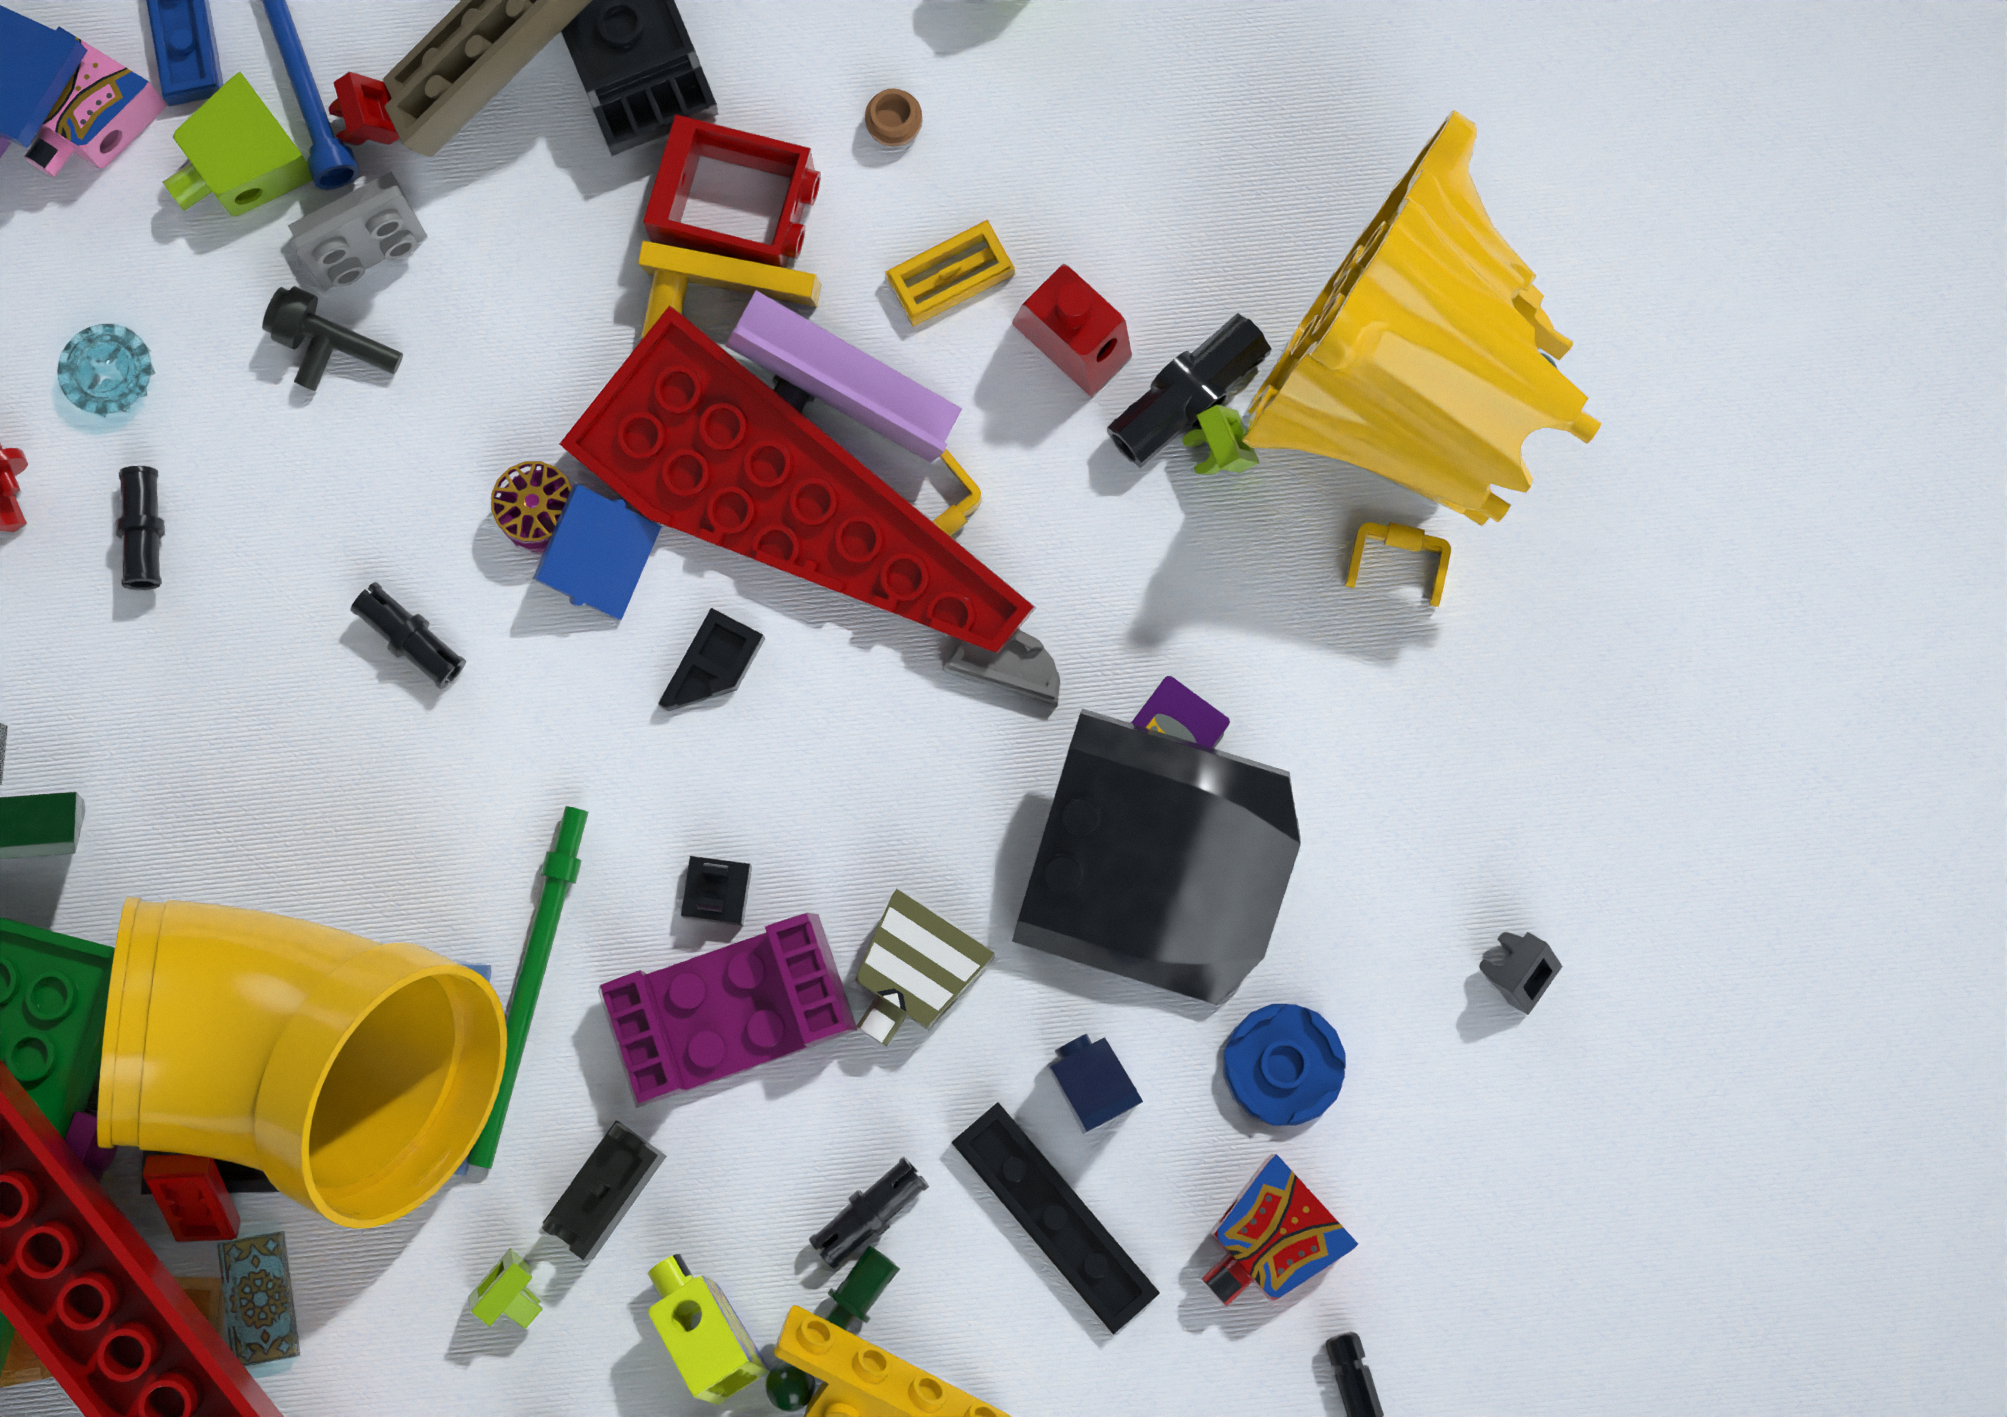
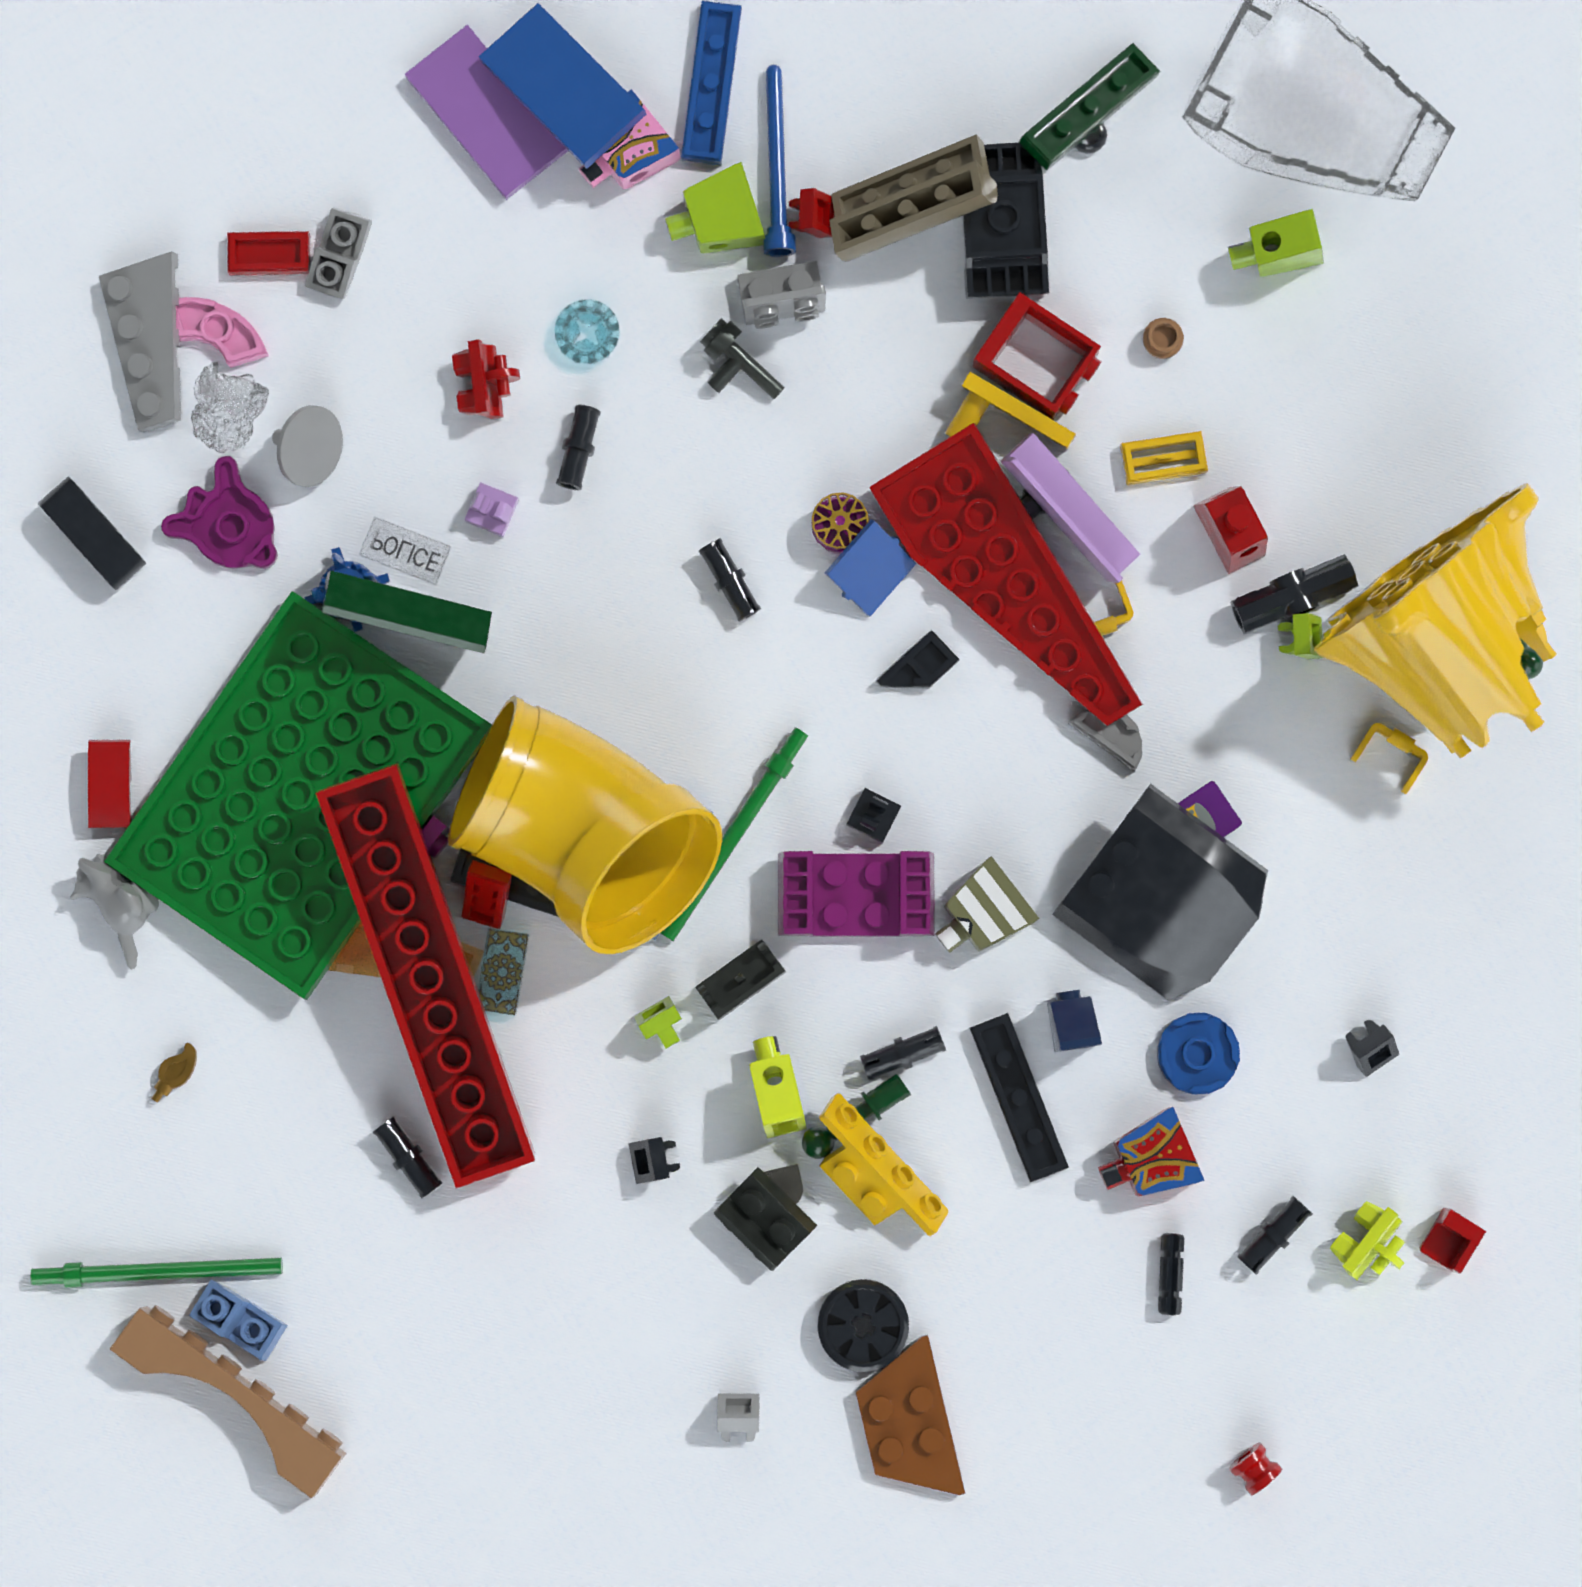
camera: 20 degrees right, 5 degrees up
(46, 654) = (491, 509): none -> lavender tile
(1484, 1286) = (1274, 1235): none -> black pin
(1612, 1274) = (1381, 1227): none -> neon yellow hips
(1735, 1203) = (1452, 1240): none -> red panel

